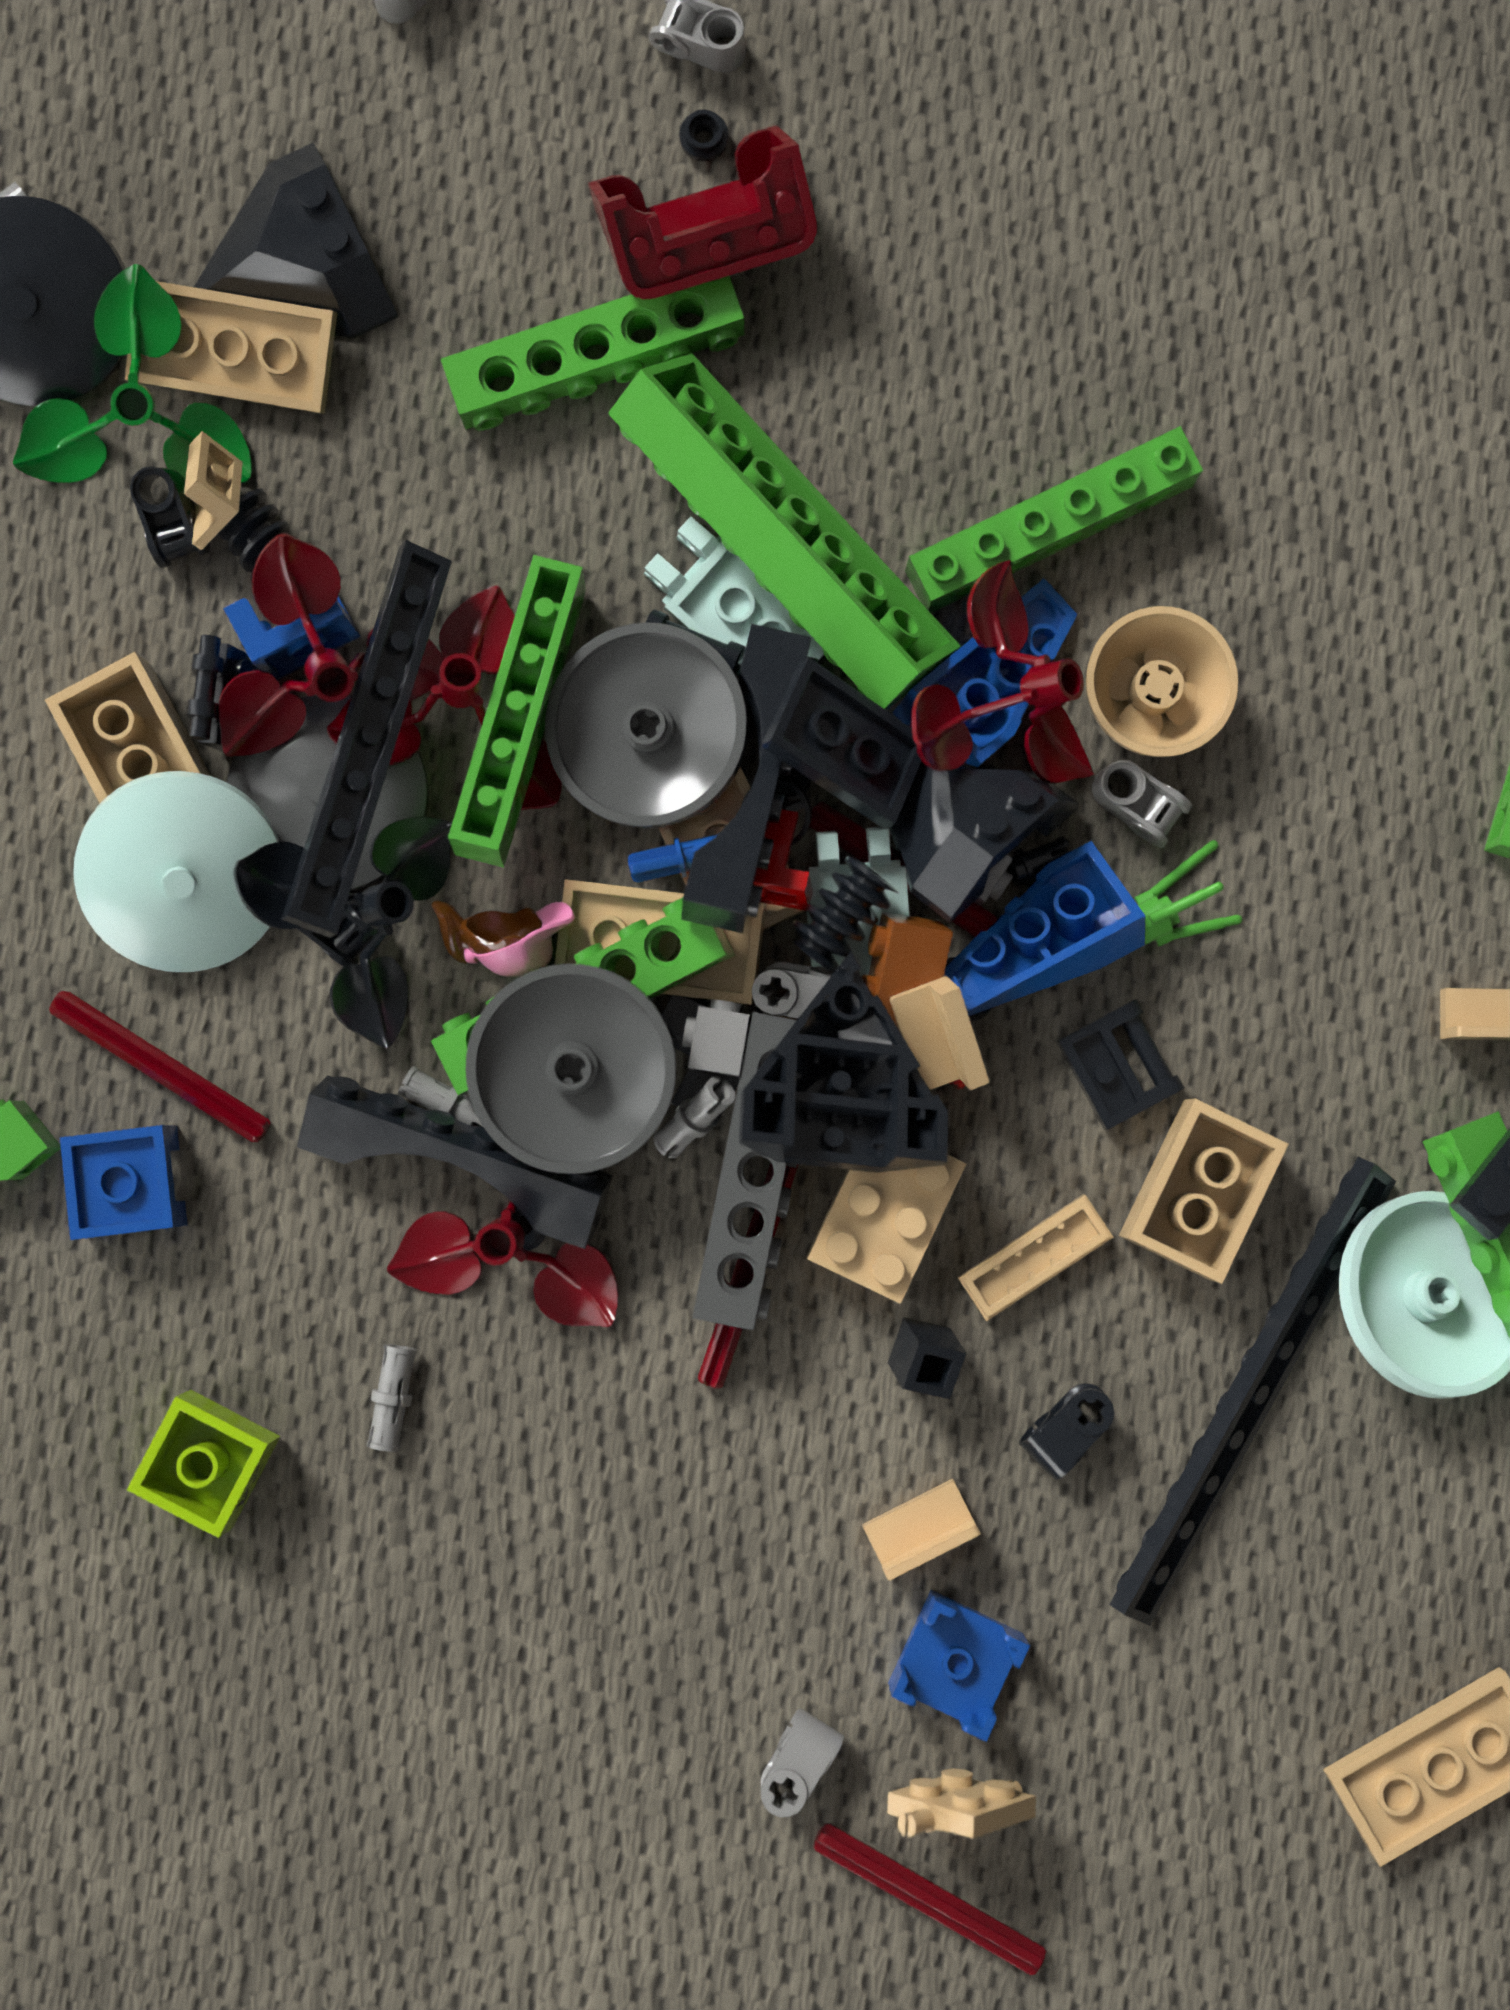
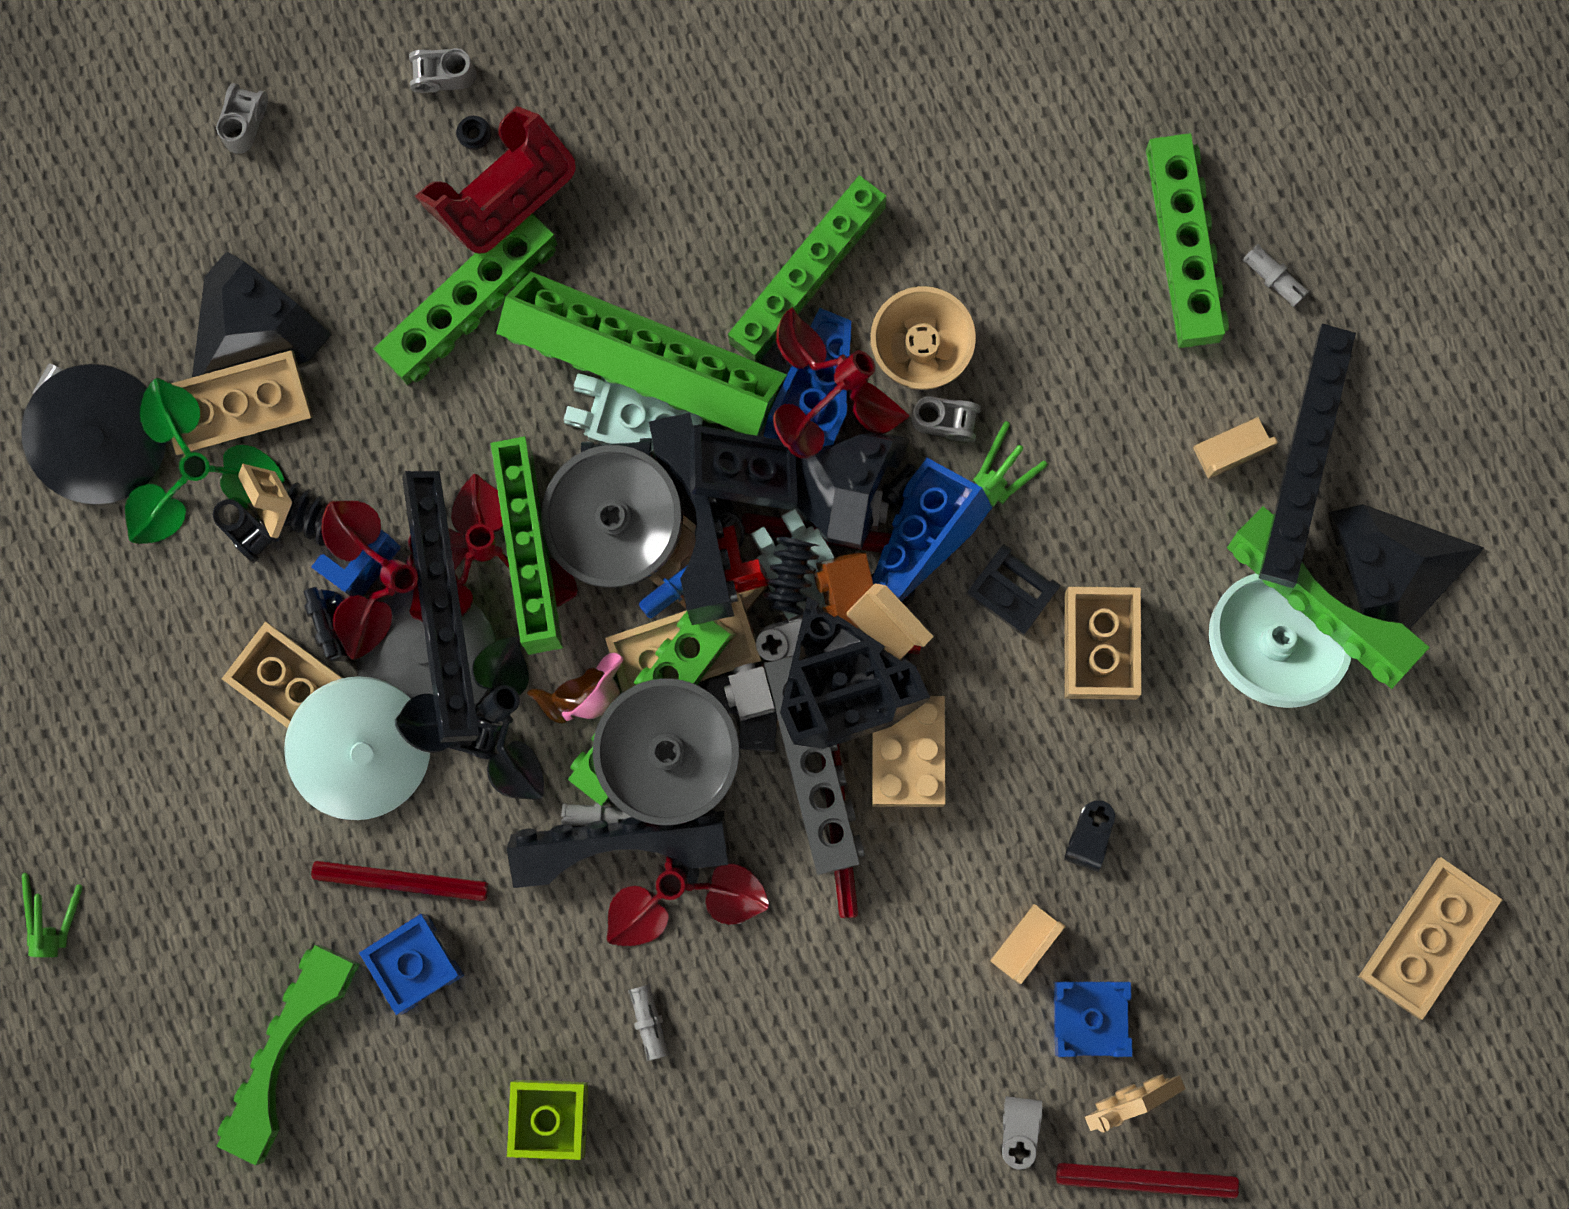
camera: 15 degrees left, 5 degrees down
(694, 1117) = (758, 749): light grey pin -> none
(926, 1358) = (978, 832): black brick -> none
(1035, 1257) = (1018, 737): tan plate -> none
(1249, 1398) = (1196, 763): black plate -> none

